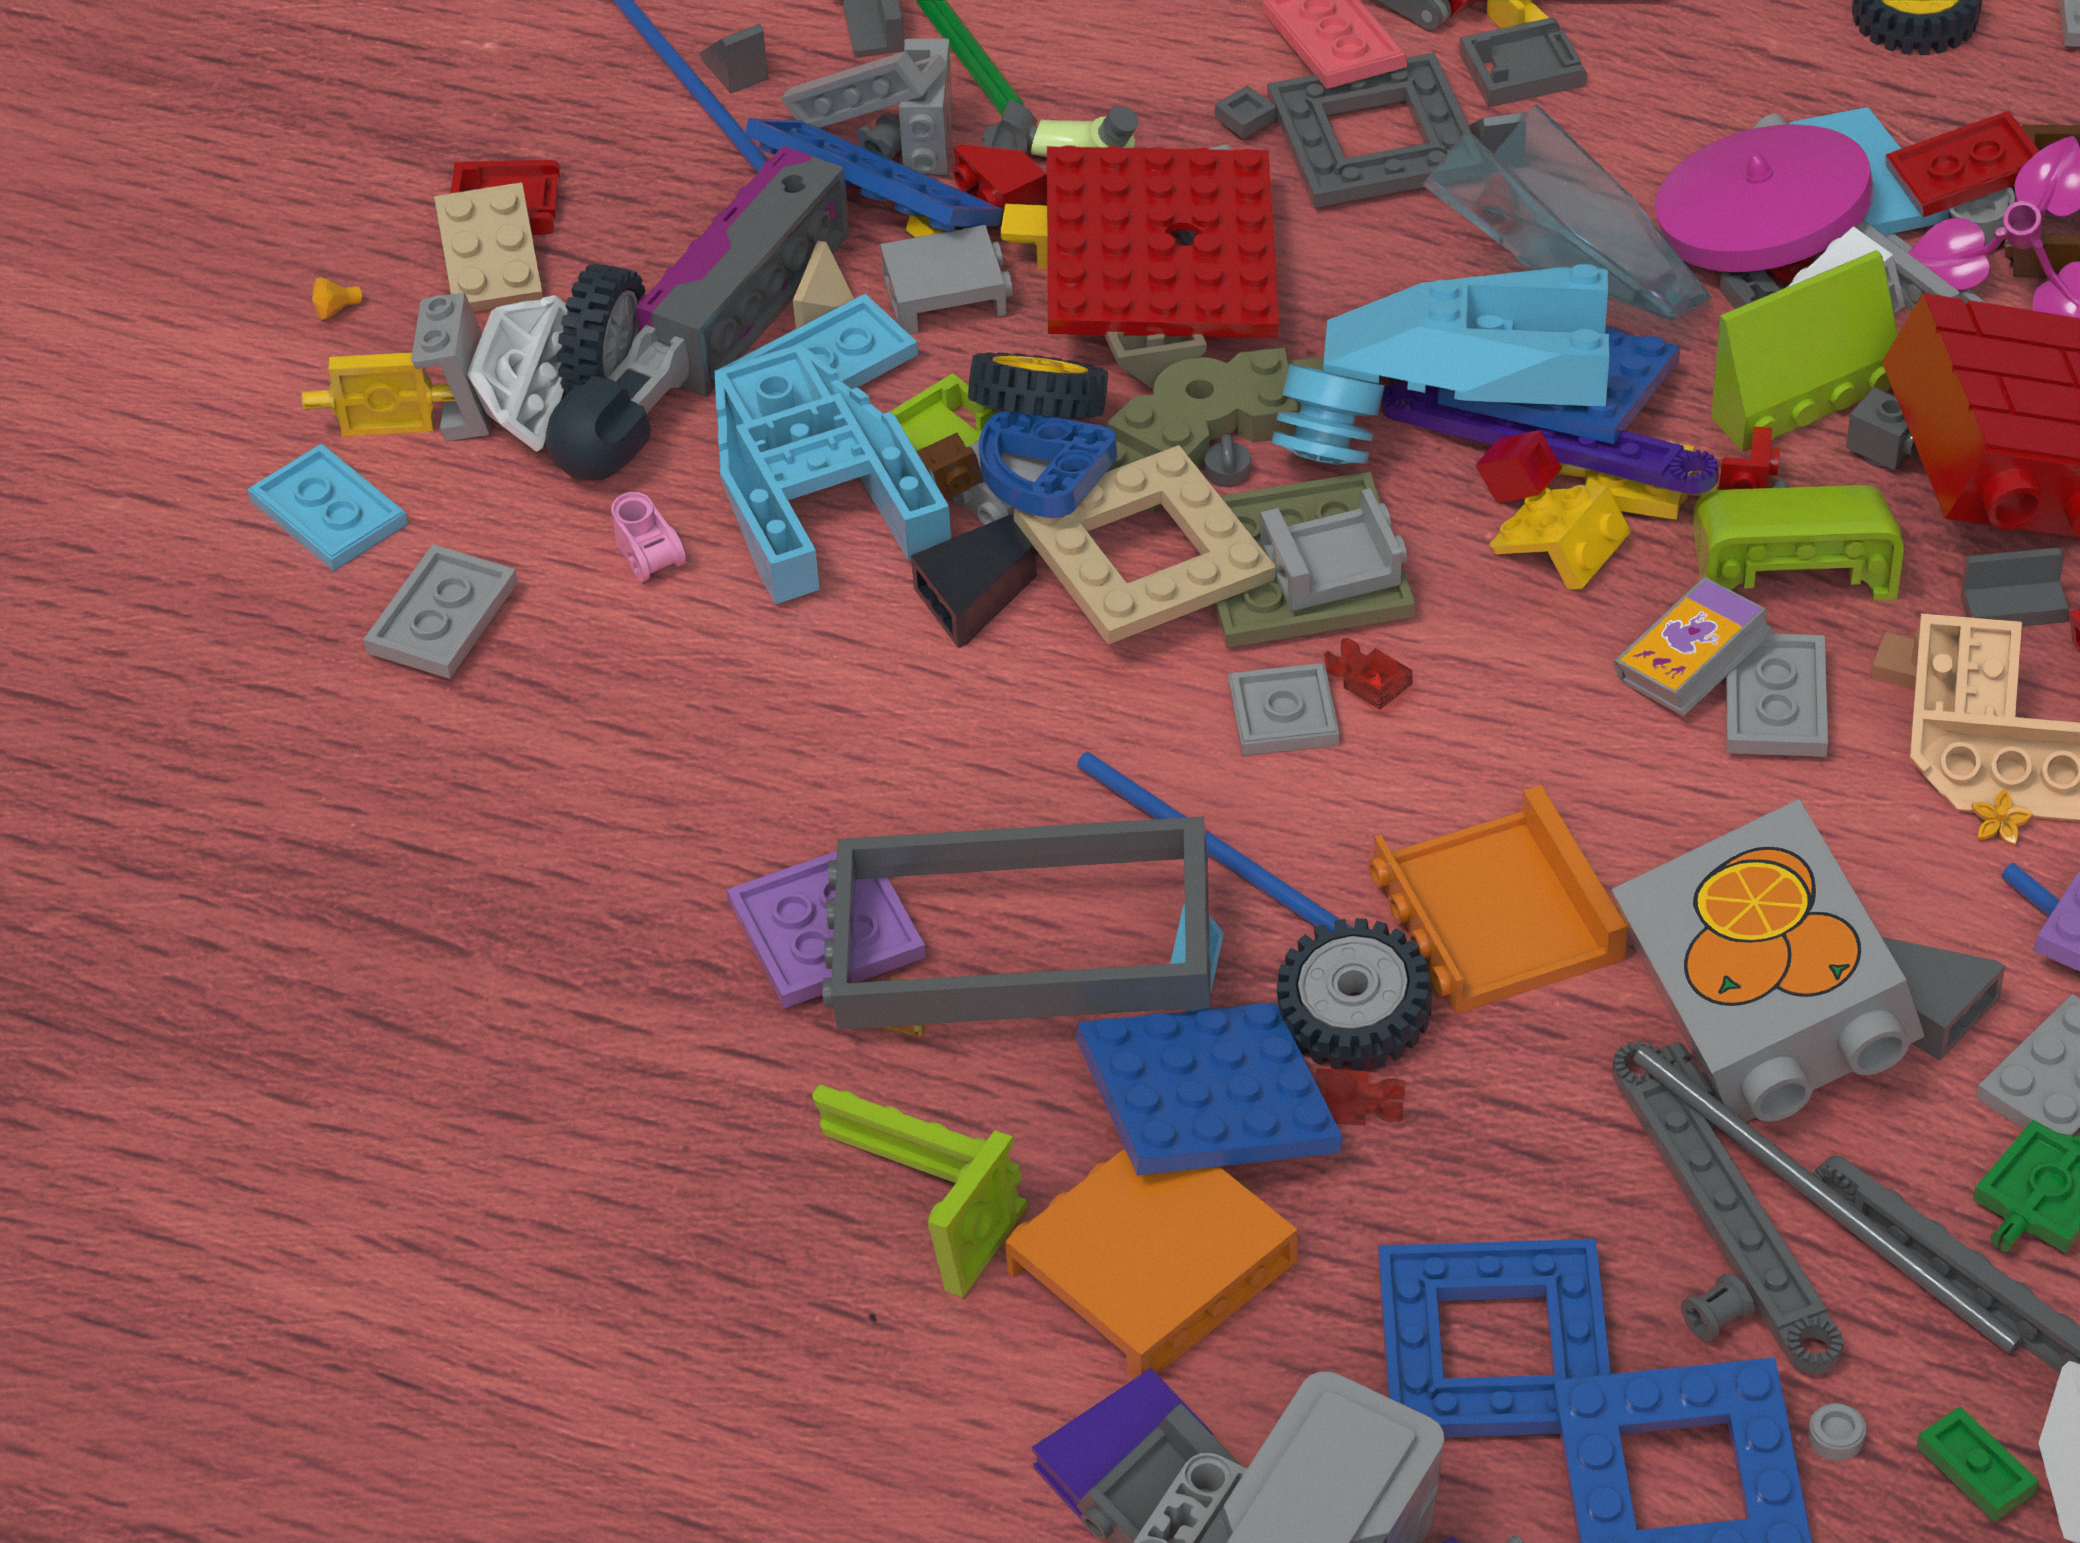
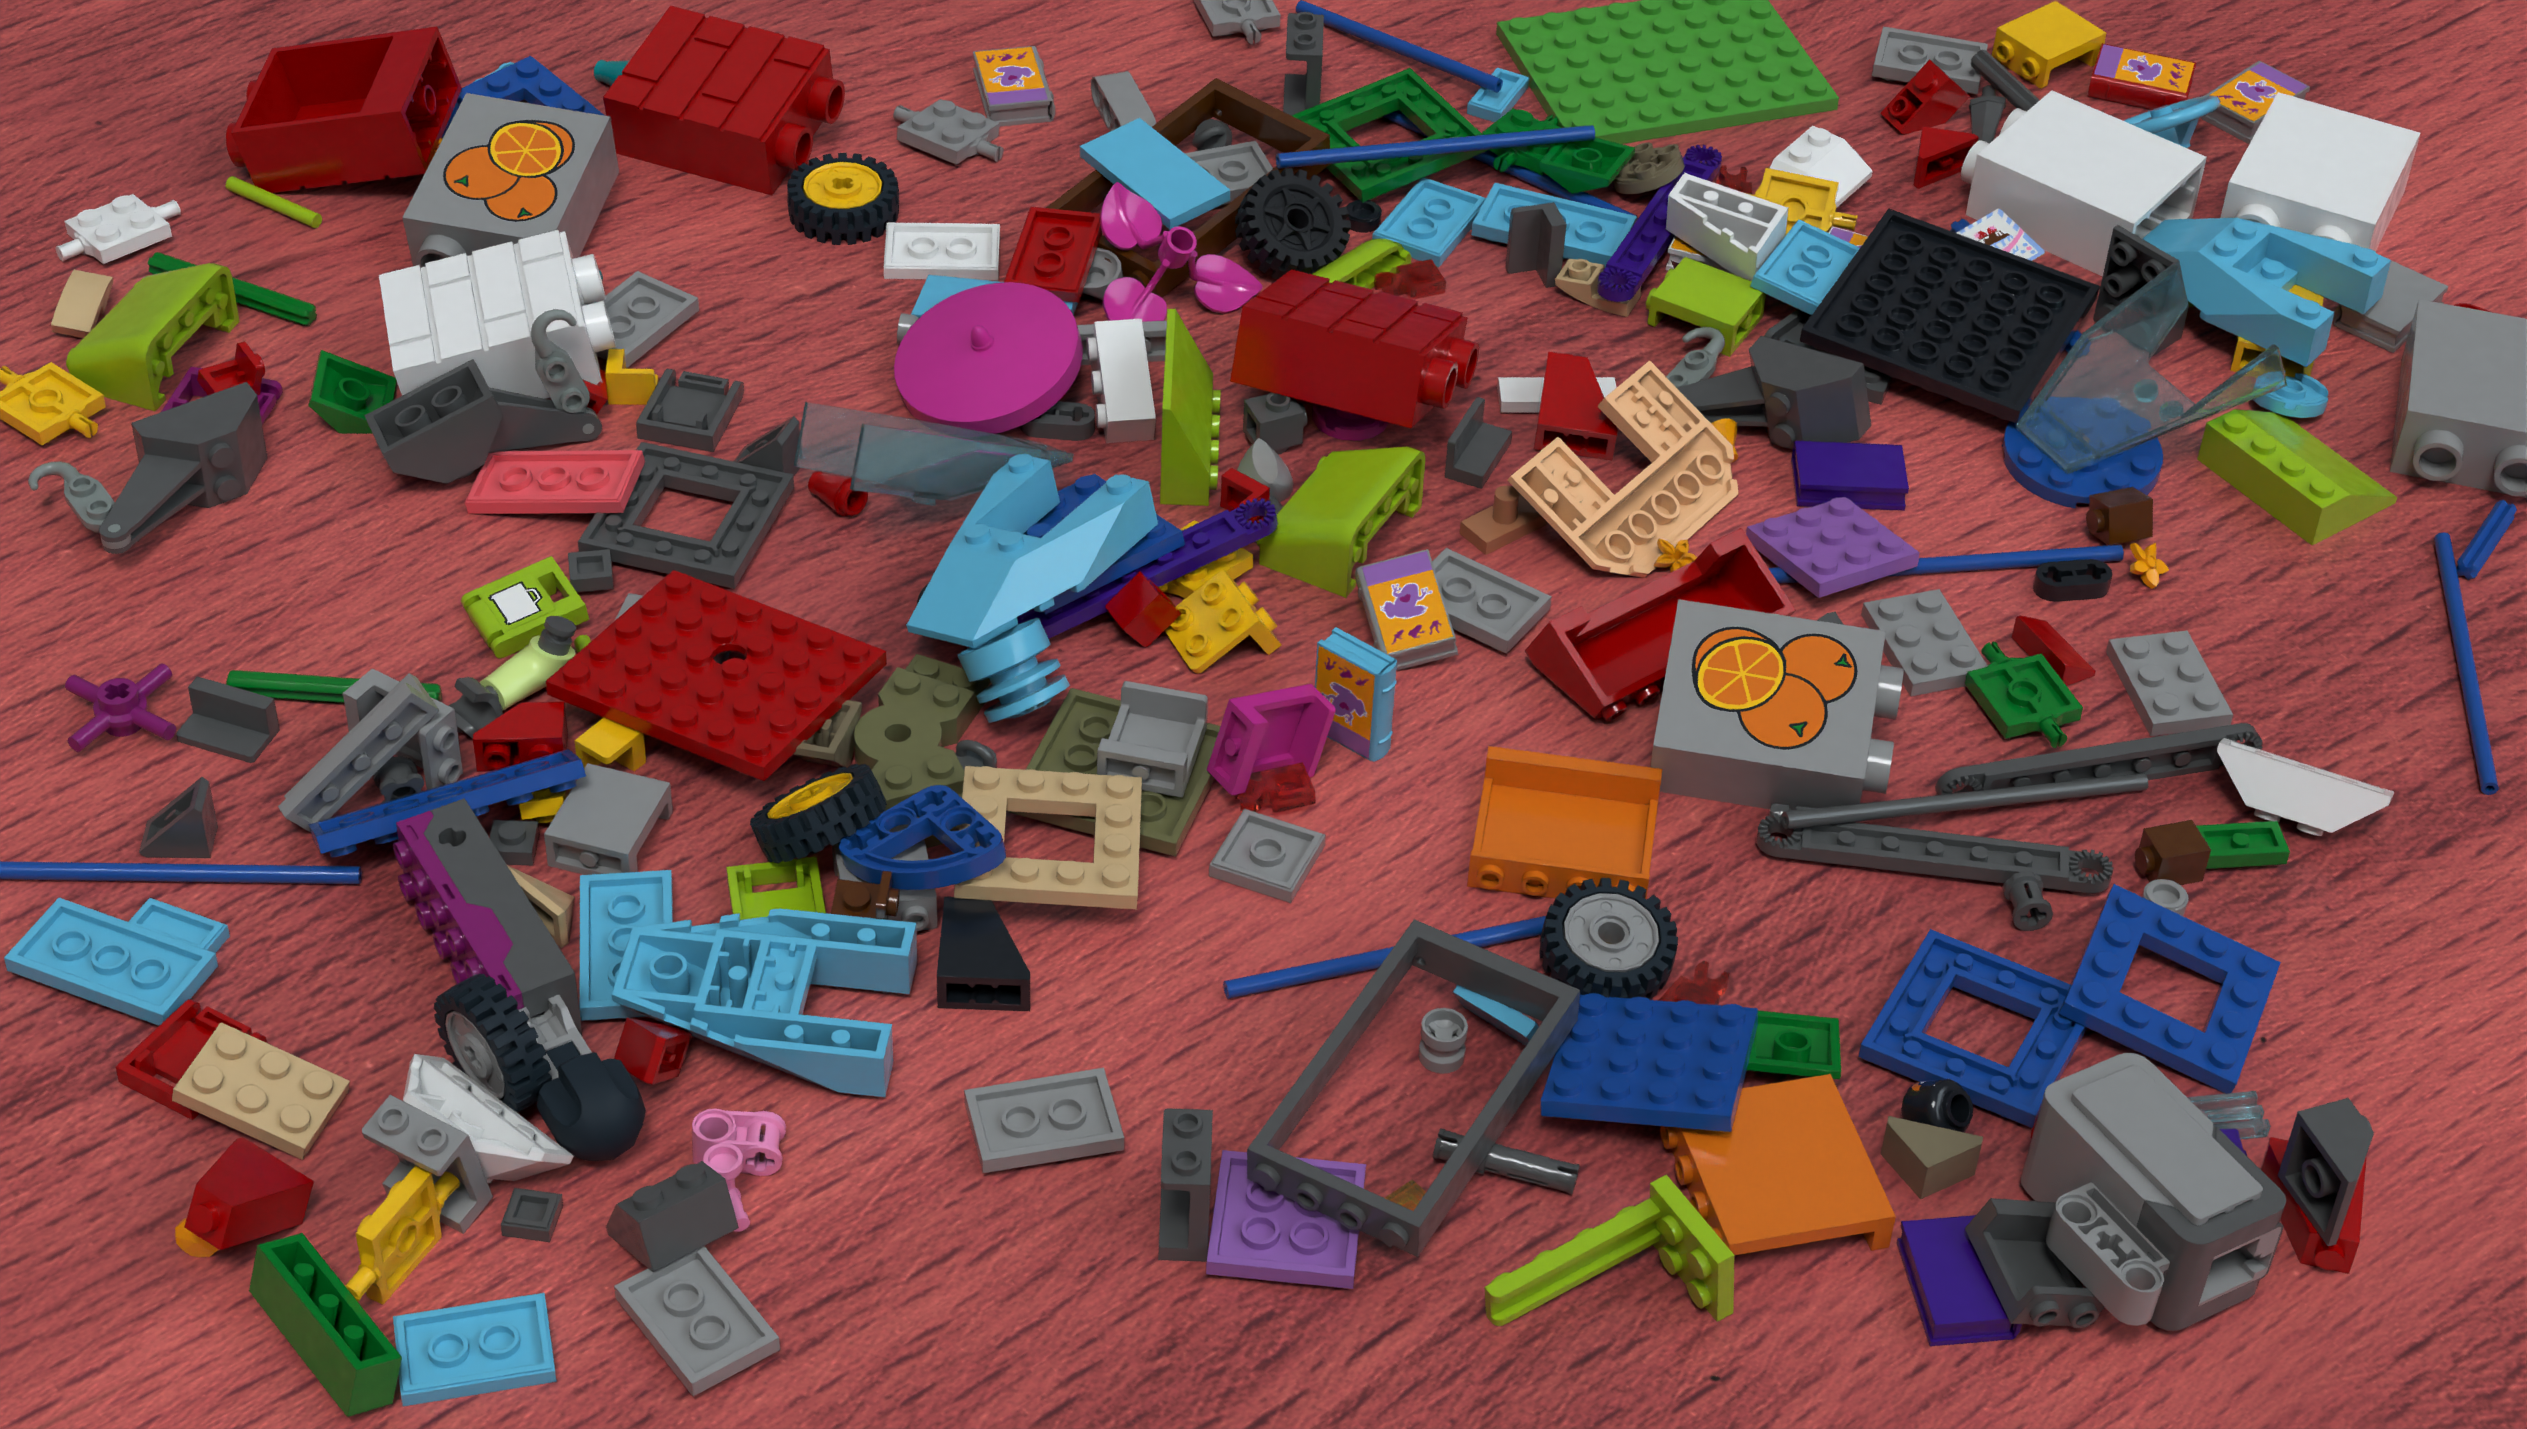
camera: 65 degrees left, 5 degrees down
(269, 406) = (325, 1324): none -> green brick
(357, 292) = (247, 1197): none -> red slope
(487, 466) = (532, 1215): none -> dark grey tile
(519, 535) = (674, 1216): none -> dark grey slope
(563, 100) = (111, 961): none -> medium azure plate
(585, 532) = (728, 1162): none -> bright pink piece
(630, 118) = (181, 925): none -> medium azure tile
(684, 434) = (652, 1050): none -> red slope
(781, 817) = (1185, 1184): none -> dark grey panel
(819, 712) = (1043, 1120): none -> light grey plate
(882, 231) = (516, 840): none -> dark grey plate
(1020, 1064) = (1515, 1163): none -> dark grey pin
(1129, 931) = (1443, 1040): none -> light grey wheel
(1160, 90) = (517, 605): none -> lime container
(1264, 1360) = (1929, 1155): none -> dark tan slope
(1331, 1322) = (1938, 1104): none -> black head
(1337, 1197) = (1796, 1045): none -> green slope
(1400, 618) = (1270, 733): none -> dark pink panel
(1508, 653) = (1361, 689): none -> piece
(1817, 461) = (1267, 468): none -> light grey piece
(1898, 856) = (1625, 645): none -> red windscreen
(1899, 1404) = (2173, 853): none -> reddish brown brick
(1916, 96) = (942, 250): none -> white tile

